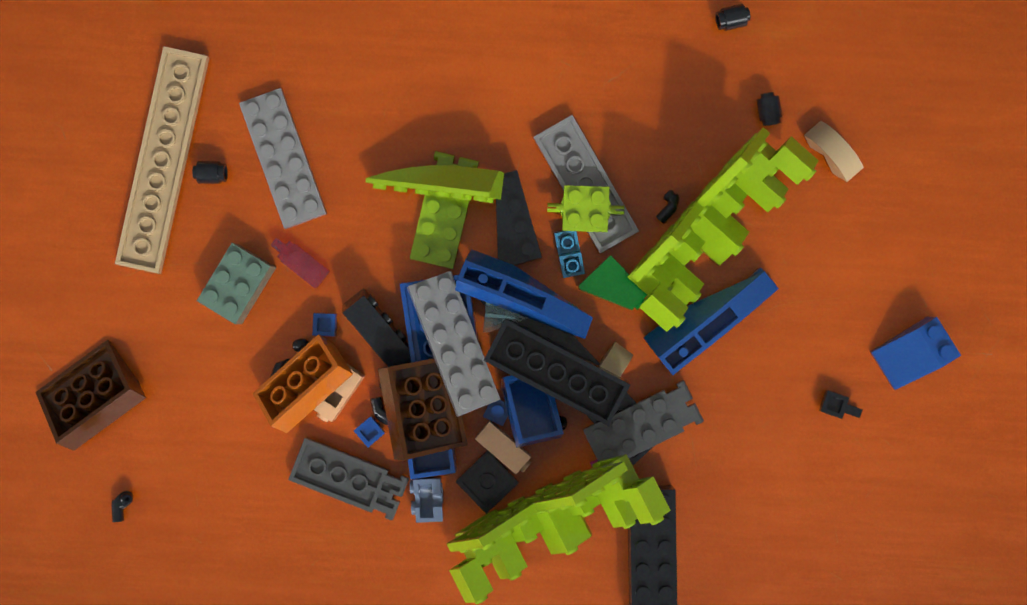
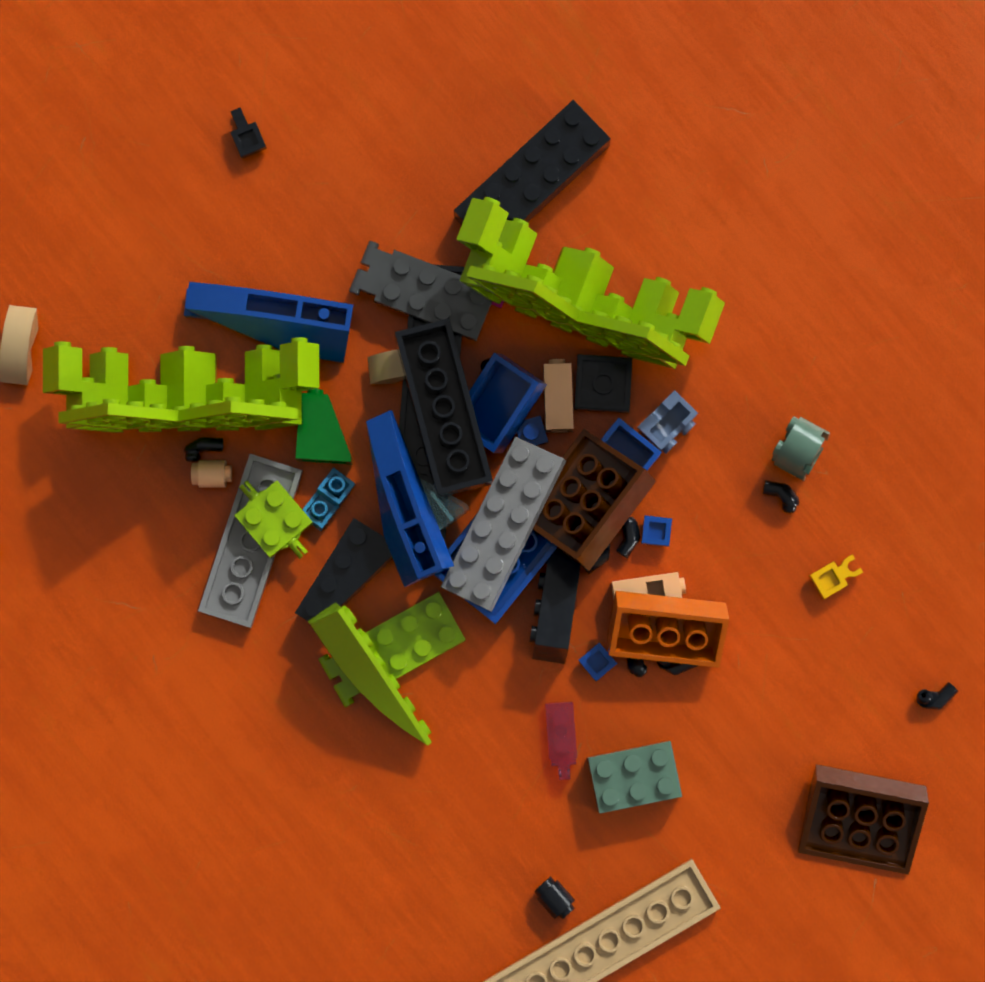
camera: 130 degrees left, 5 degrees down
(245, 509) = (832, 578): none -> yellow plate
(283, 158) = (480, 843): light grey plate -> none
(322, 529) = (784, 492): none -> black arm
(337, 564) = (800, 448): none -> sand green brick
(347, 478) = (717, 512): dark grey hinge -> none
(648, 197) = (211, 473): none -> light nougat brick
(769, 109) = (31, 437): black brick -> none
(915, 352) = (136, 110): blue slope -> none

